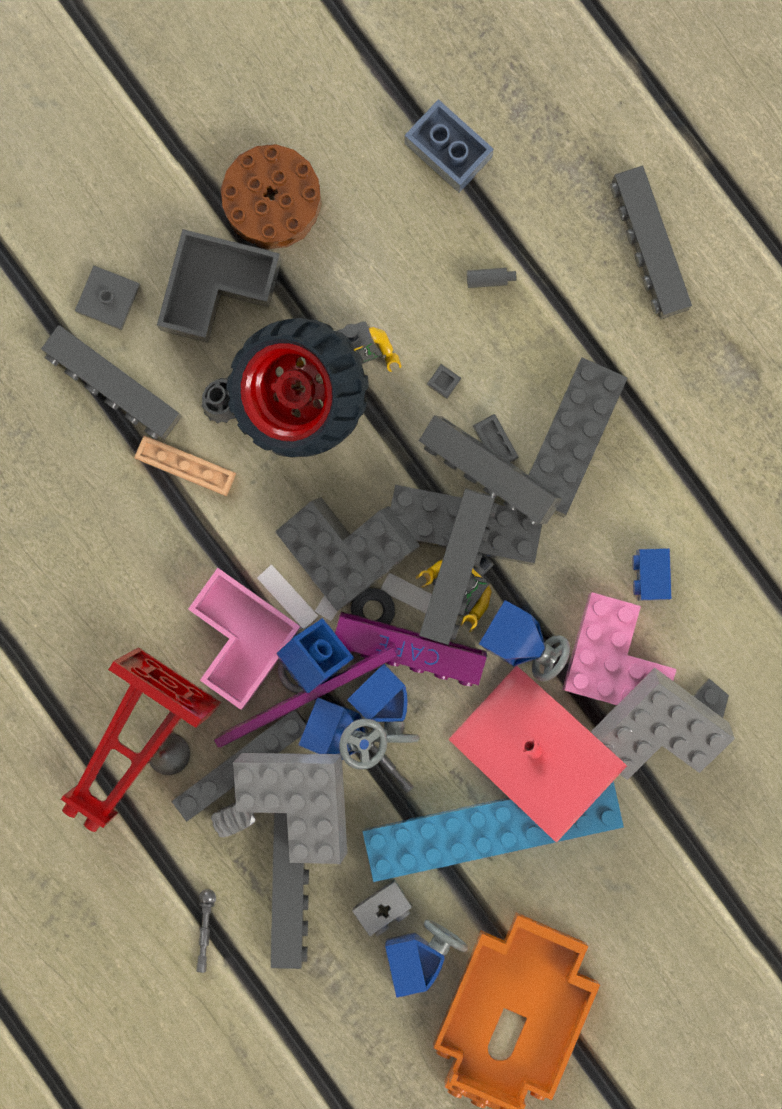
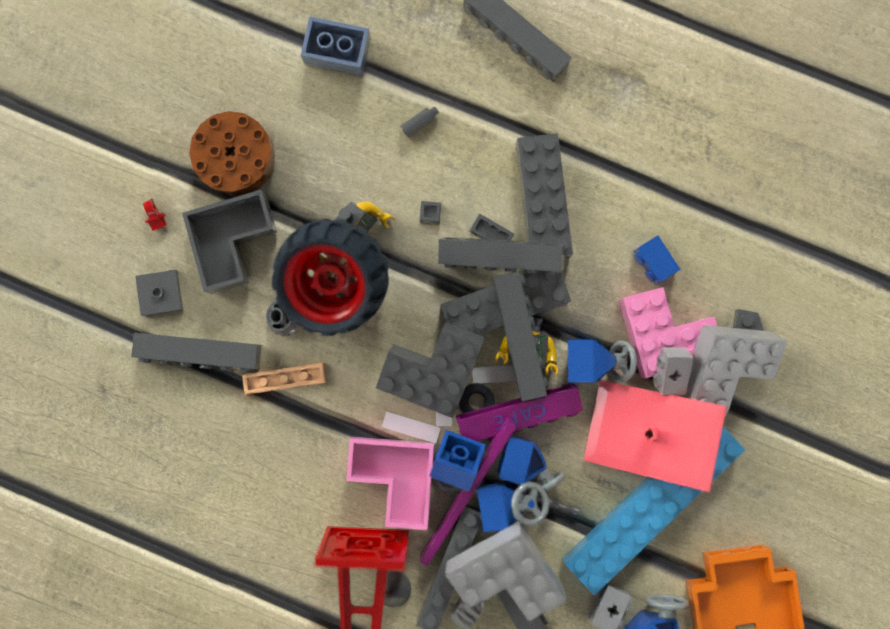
camera: 35 degrees left, 0 degrees up
(150, 218) = (156, 219): none -> red piece
(595, 698) = (673, 371): none -> light grey brick

